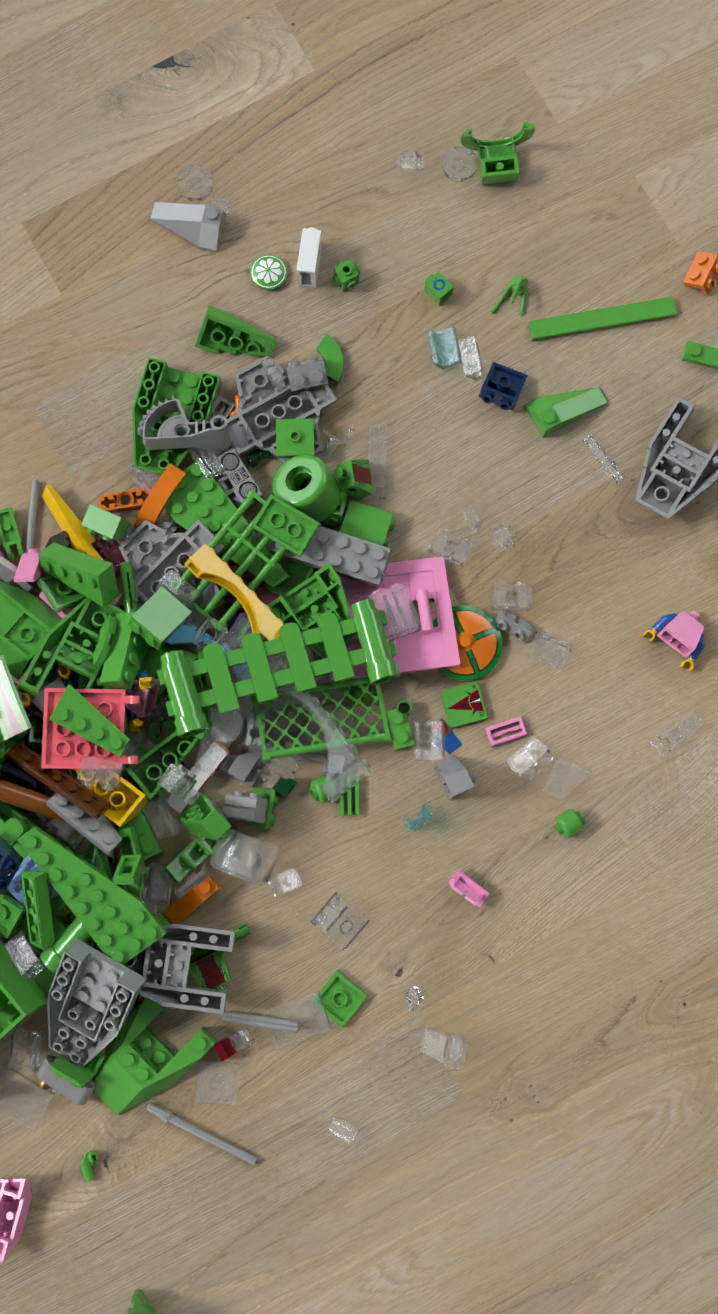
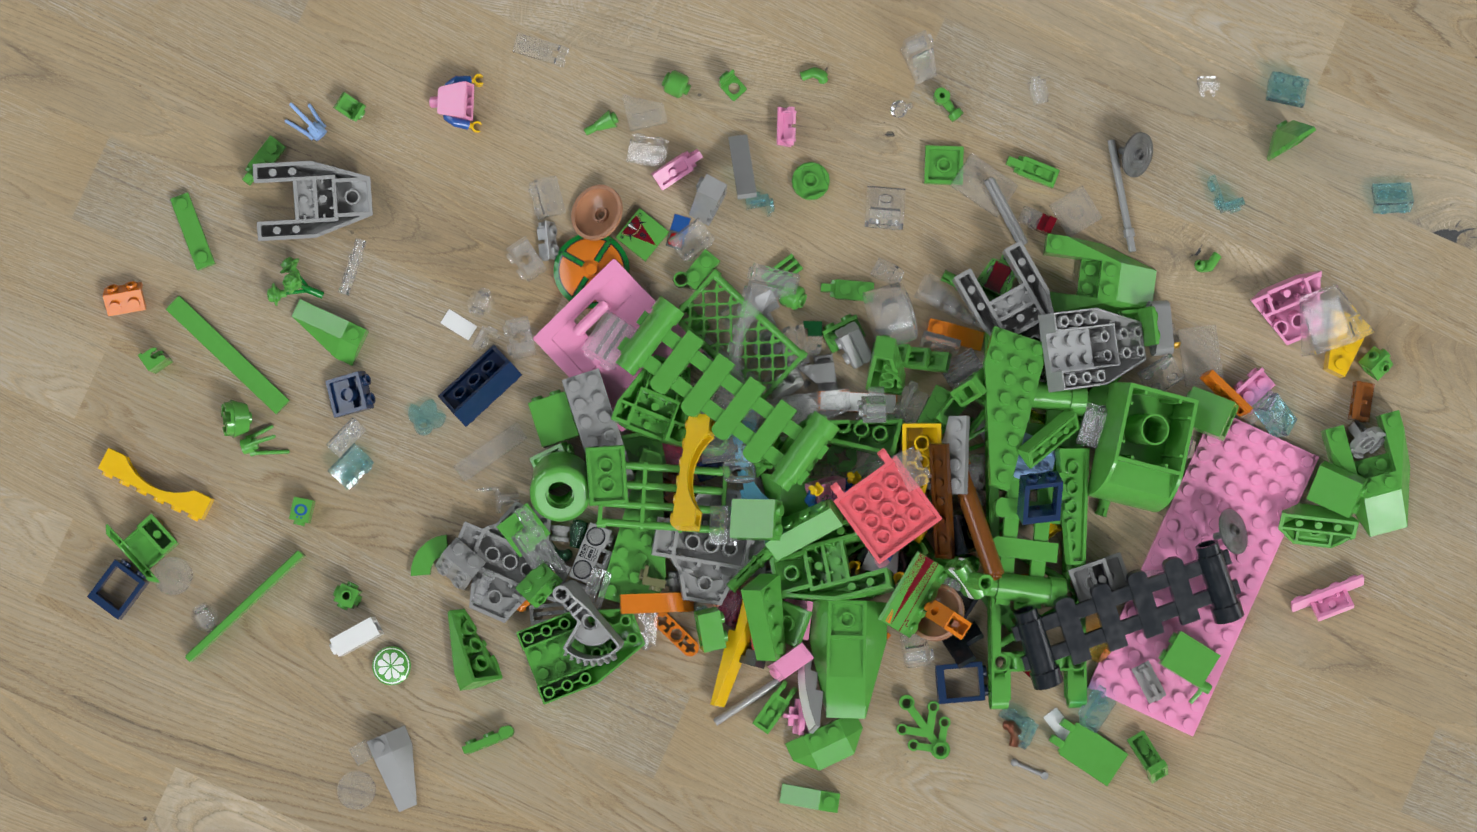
camera: 130 degrees left, 5 degrees up
(84, 719) = (880, 509): bright green wing -> none
(102, 648) = (815, 546): bright green tile -> none
(132, 1217) = (1232, 206): none -> clear light blue bracket
(155, 302) = (488, 740): none -> bright green hinge
(174, 505) = (653, 583): none -> olive bracket
(225, 1174) = (1137, 154): none -> flat silver shield
(233, 910) = (940, 297): none -> clear wedge
(240, 1287) = (1208, 83): none -> clear tile
(243, 418) = (538, 584): none -> bright green bracket
(262, 480) = (577, 533): none -> clear green cone
(271, 466) = (559, 533): none -> light grey wheel
(275, 433) = (534, 544): none -> clear bracket
(278, 1073) = (1034, 170): none -> bright green hinge
(295, 839) = (847, 289): none -> bright green hinge
(355, 478) = (520, 457): bright green torso -> none
(396, 197) = (245, 606): none -> bright green tile
(397, 1041) = (942, 98): none -> bright green leg
(408, 875) = (810, 181): none -> bright green tile
(435, 489) = (480, 385): none -> dark blue slope
(444, 433) = (426, 414): none -> clear light blue plate
(459, 825) = (742, 166): none -> light grey tile
(476, 100) = (108, 606): none -> dark blue window
(490, 736) = (634, 192): bright pink tile -> none
(495, 948) = (815, 73): none -> bright green arm
(497, 509) = (458, 324): none -> white sticker
(498, 772) = (676, 168): none -> bright pink hinge
(514, 675) = (591, 207): none -> nougat dish
(543, 869) = (728, 78): none -> bright green bracket
(547, 286) = (235, 418): none -> bright green cone
(569, 181) = (121, 467): none -> yellow arch
(578, 744) = (606, 121): none -> bright green cone
(625, 397) = (291, 282): none -> bright green plant
(637, 255) = (154, 363): none -> bright green hinge

